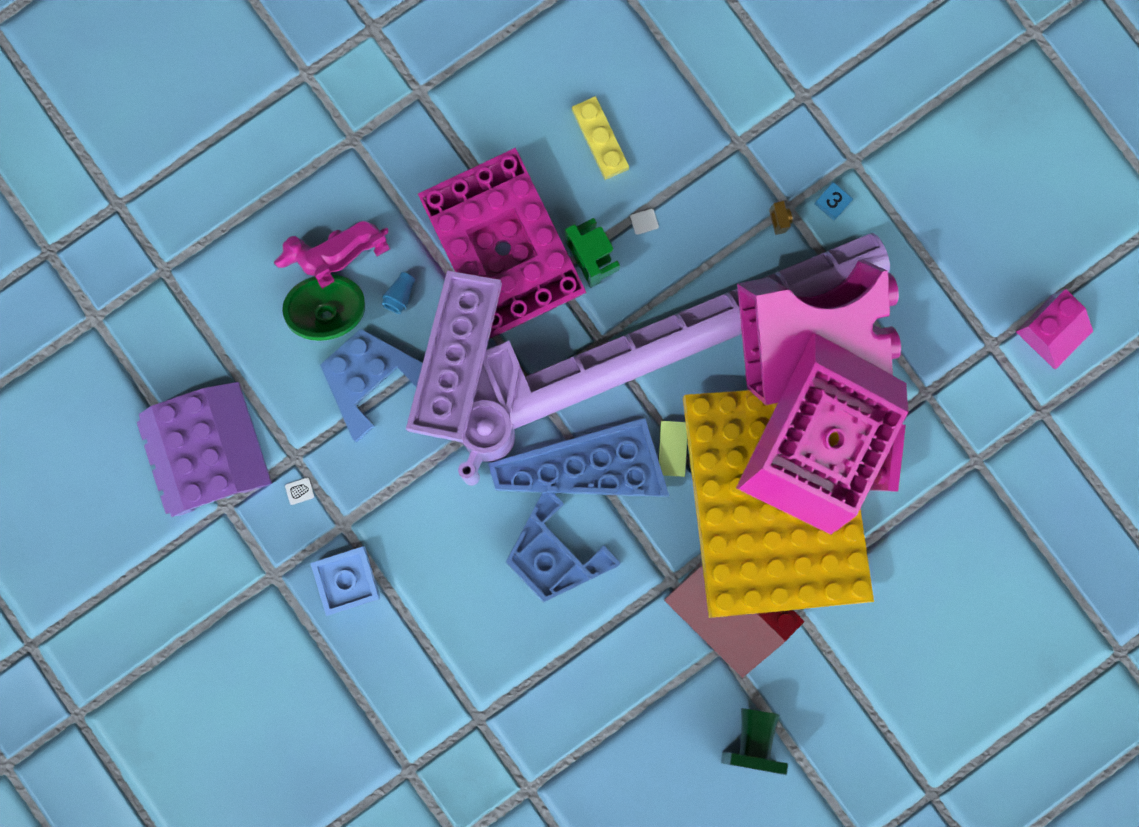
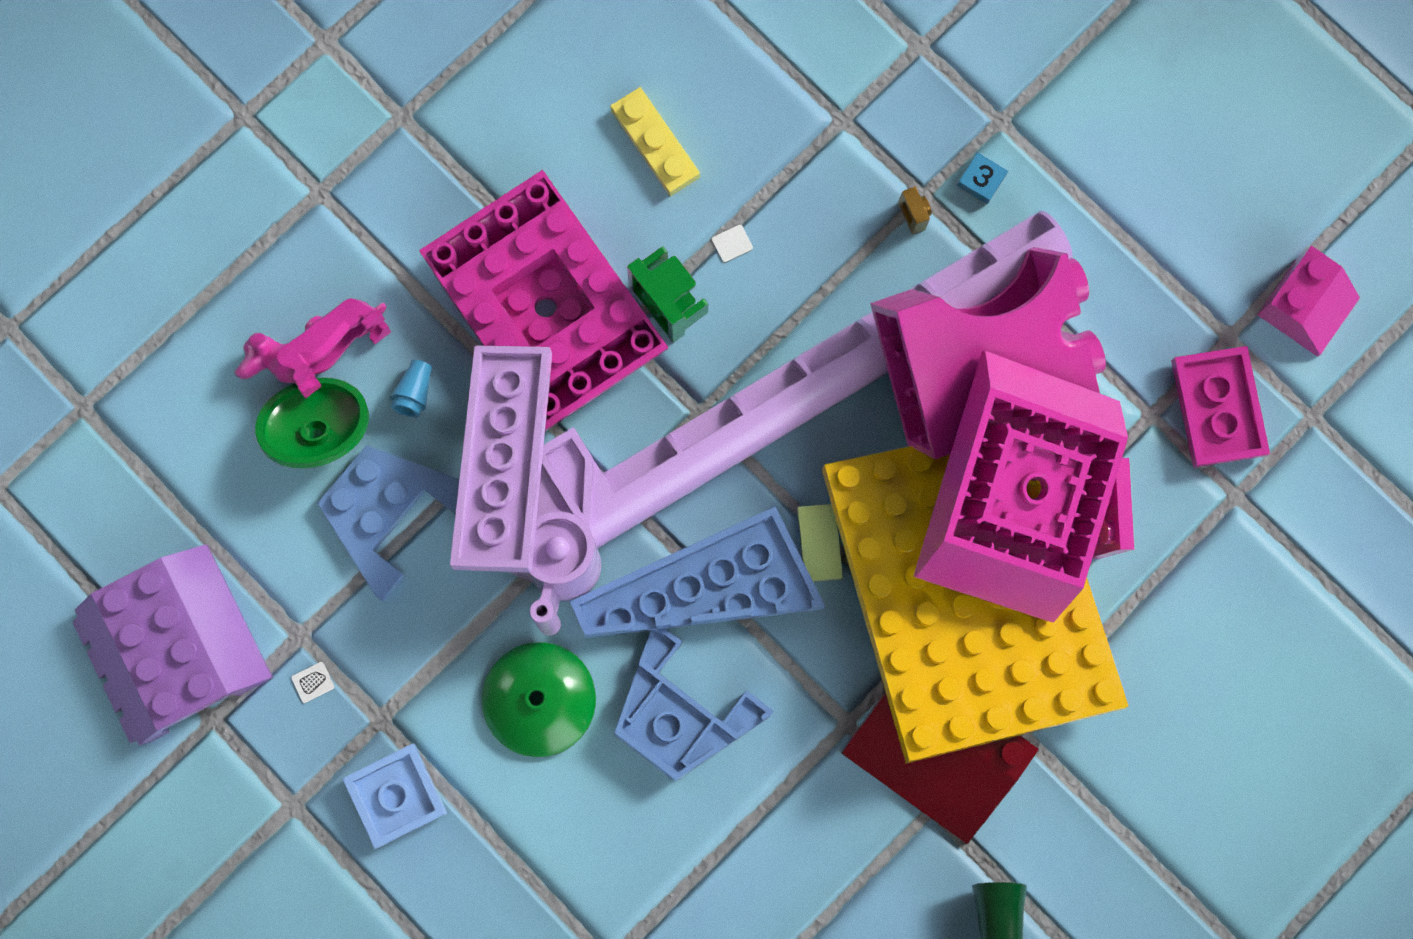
camera: 10 degrees left, 5 degrees down
(476, 526) = (566, 706): none -> green dish
(977, 395) = (1220, 406): none -> dark pink plate

